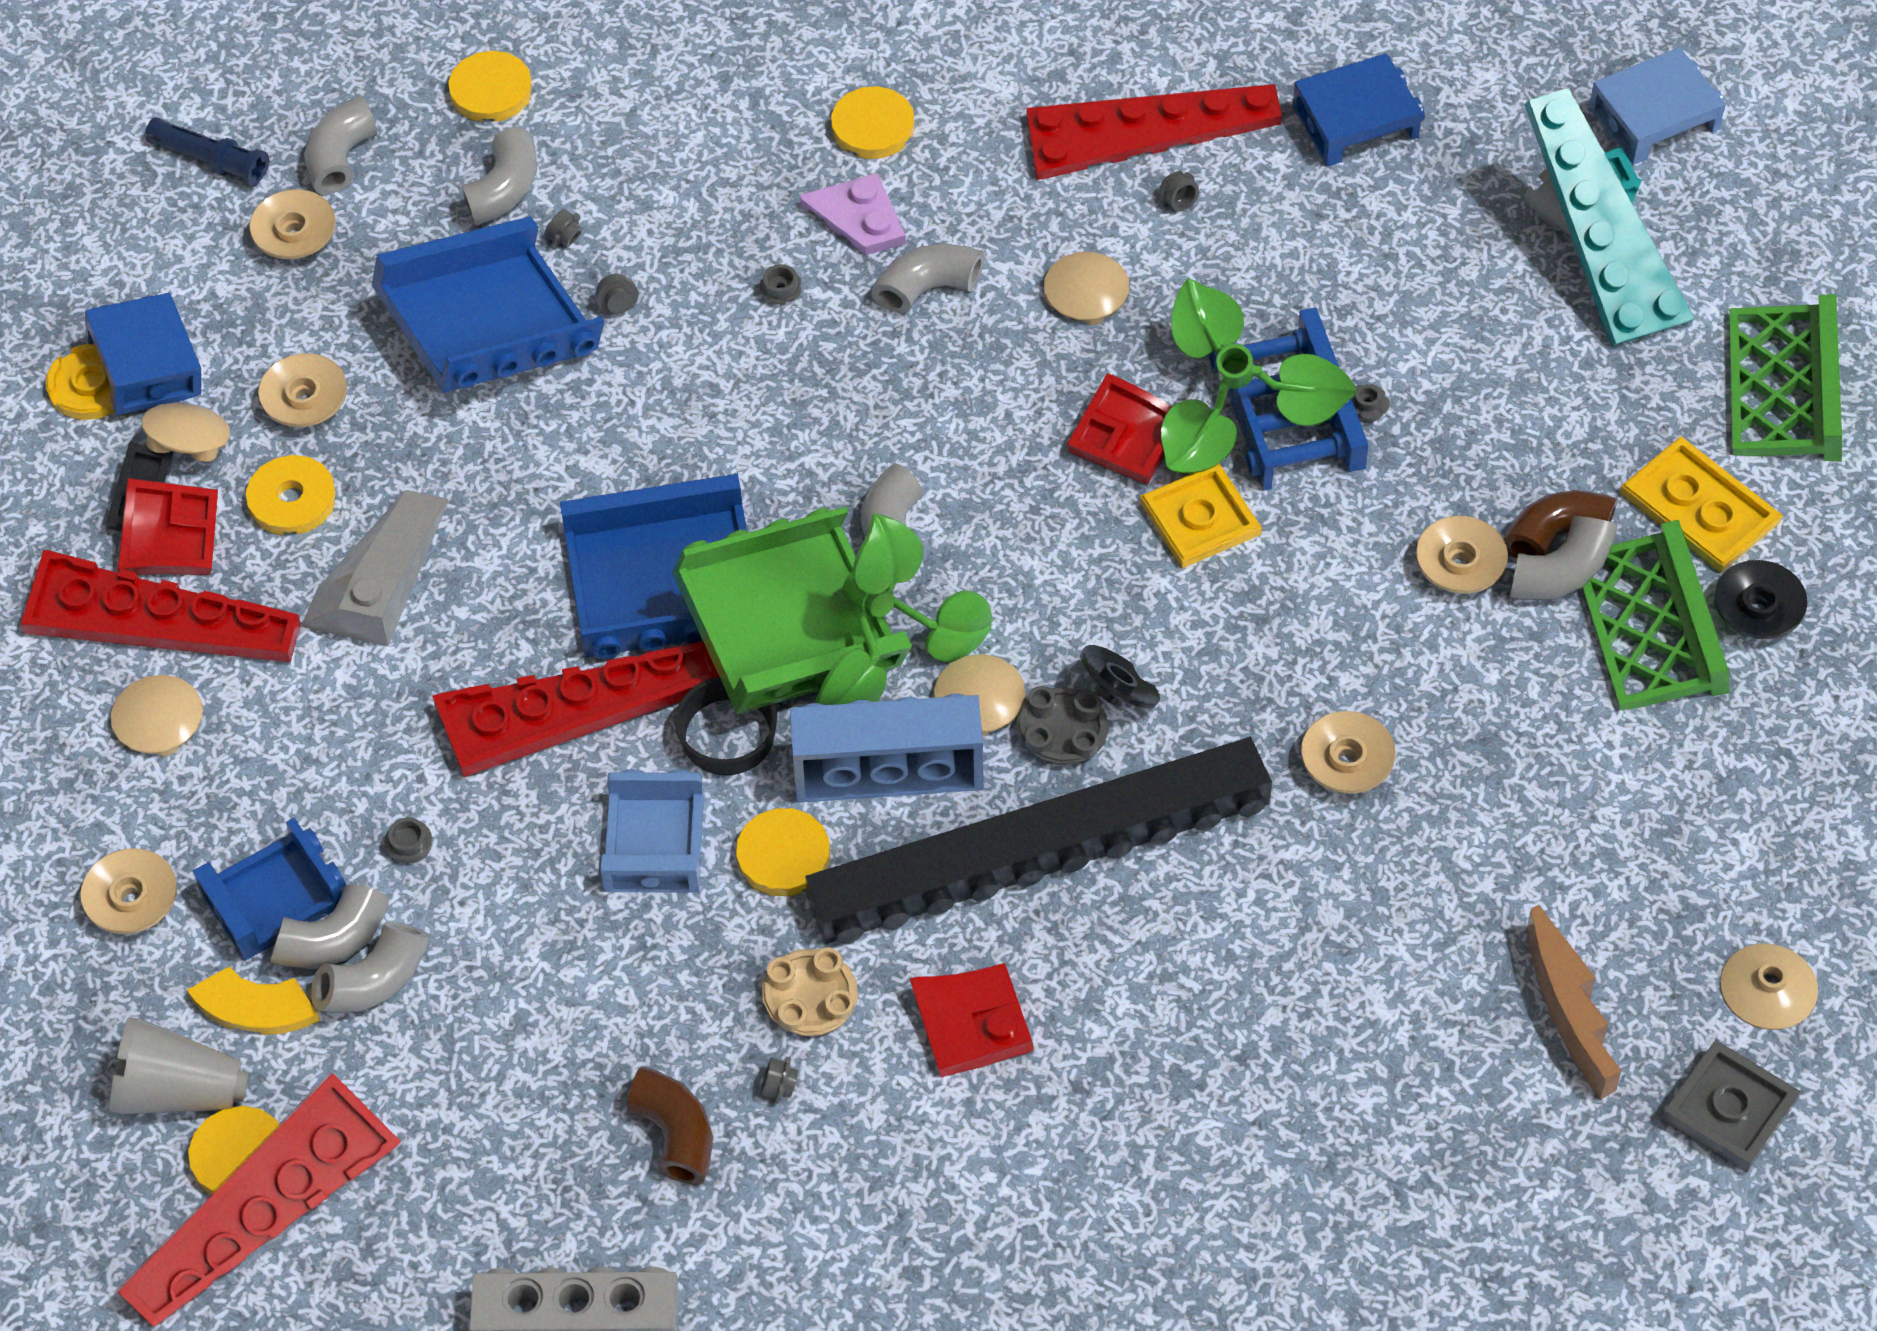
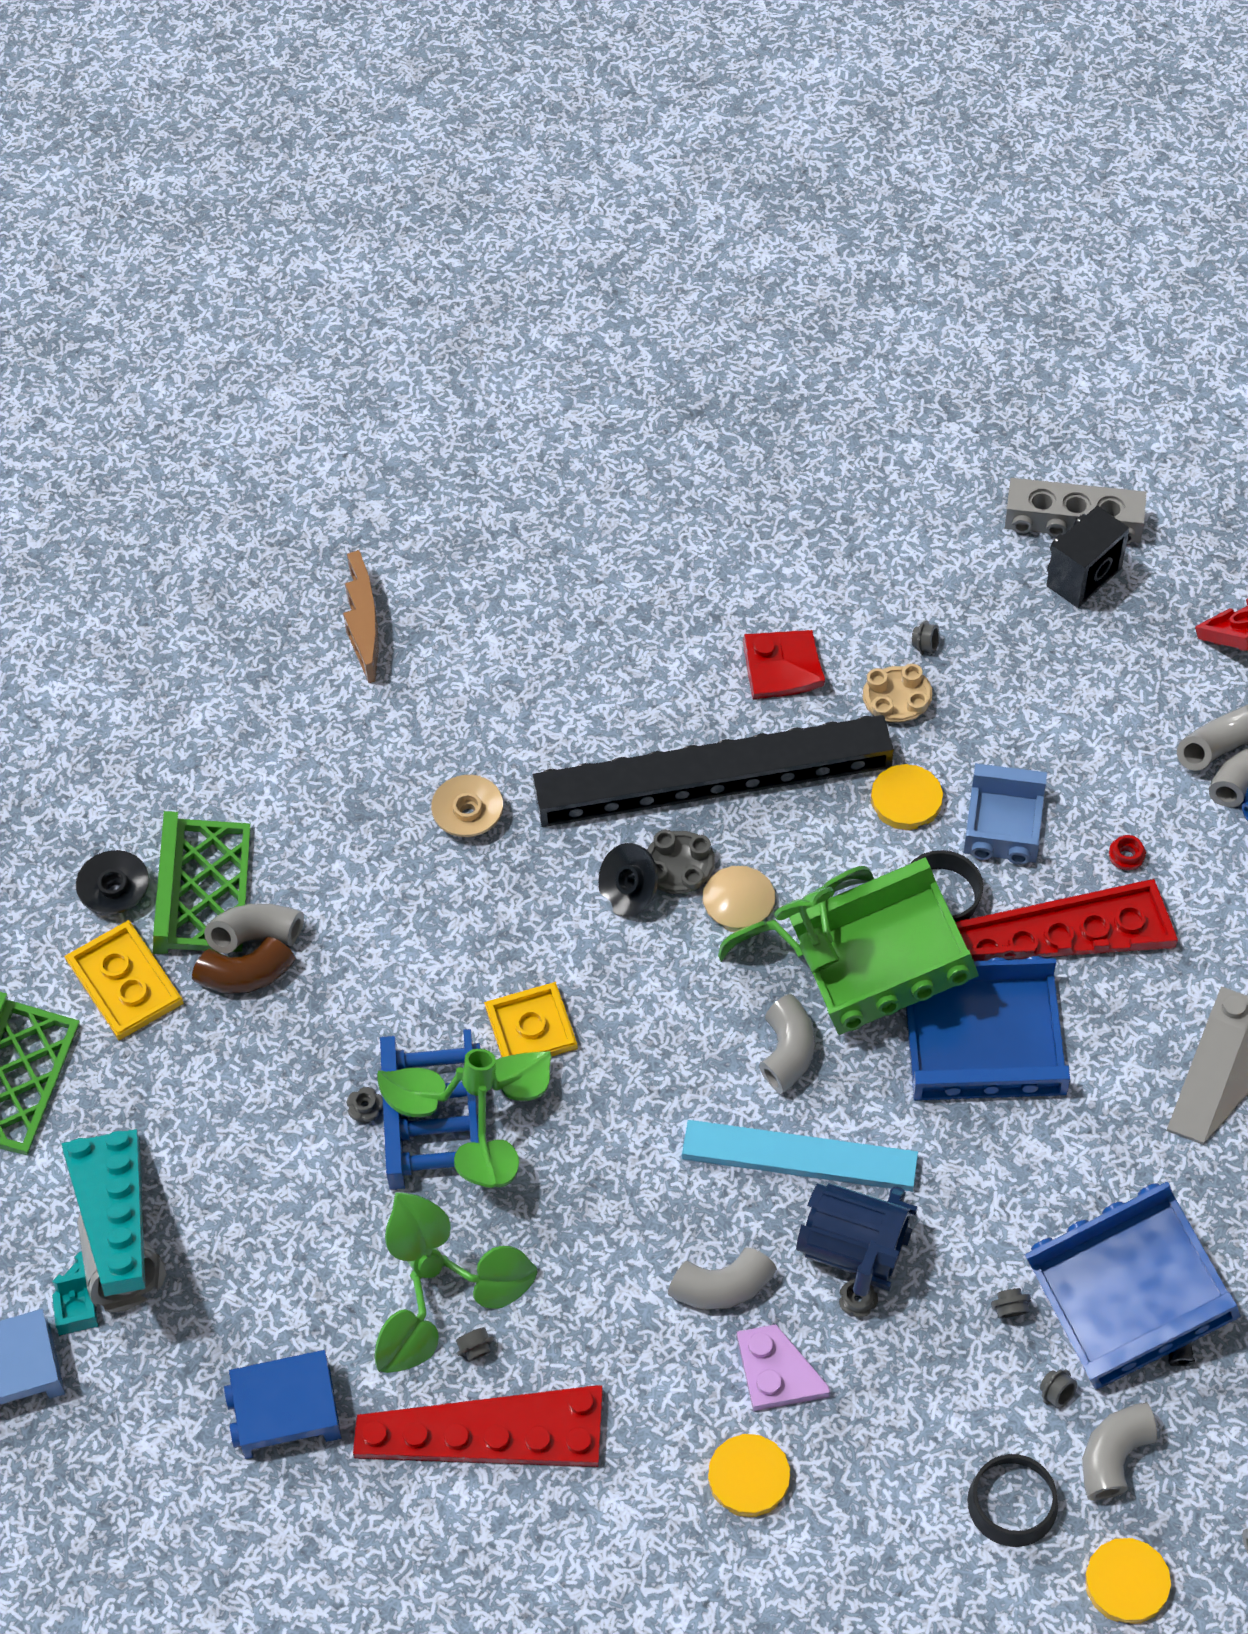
camera: 170 degrees left, 0 degrees up
(408, 840) = (1194, 838): dark grey plate -> none
(495, 799) = (1131, 844): none -> red plate
(556, 1202) = (1087, 556): none -> black brick
(612, 161) = (1004, 1536): none -> black tyre
(681, 1121) = (998, 617): reddish brown cylinder -> none
(785, 315) = (857, 1233): none -> dark blue container
(862, 417) = (799, 1155): none -> medium azure tile
(887, 748) = (819, 833): medium blue brick -> none
(1086, 286) = (580, 1258): tan dish -> none
(1122, 430) = (576, 1101): red plate -> none
(1249, 244) = (413, 1236): none -> bright green plant
(1461, 539) = (329, 936): tan dish -> none
(1731, 1105) = (278, 544): dark grey plate -> none
(1766, 1003) = (222, 633): tan dish -> none

